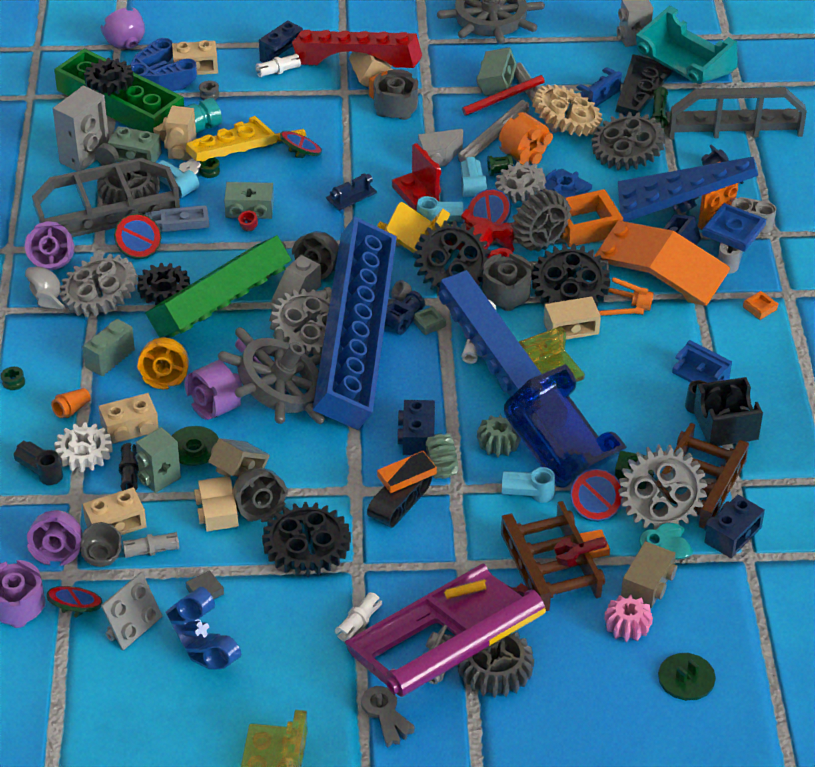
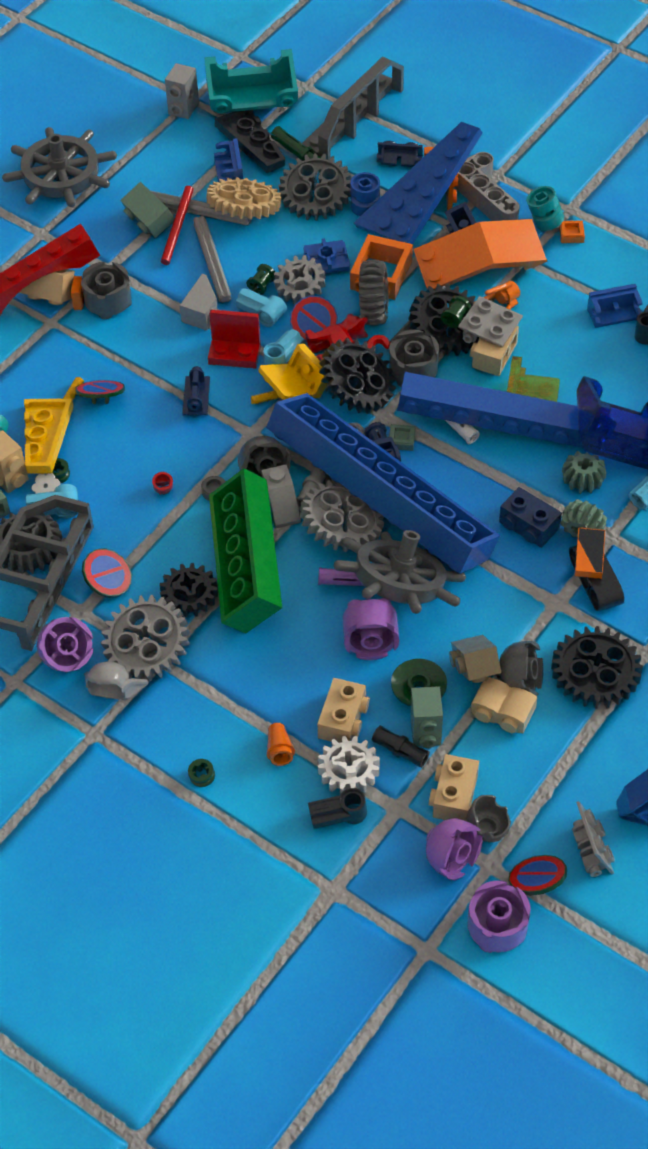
camera: 50 degrees left, 10 degrees up
(109, 347) = (237, 675): sand green brick -> none
(150, 545) = (510, 780): light grey pin -> none
(163, 363) = (298, 645): light orange cylinder -> none
(180, 218) = (109, 529): sand blue hinge -> none
(207, 581) = (591, 771): dark grey tile -> none
(249, 196) = (137, 467): sand green brick -> none
(525, 138) = (256, 243): orange brick -> none
(570, 271) = (453, 315): none -> dark green bush
(583, 296) = (489, 322): none -> light grey hinge
(650, 162) = (364, 192): none -> blue wheel
(734, 227) = (491, 188): blue tile -> none
(755, 270) = (545, 208): none -> teal wheel

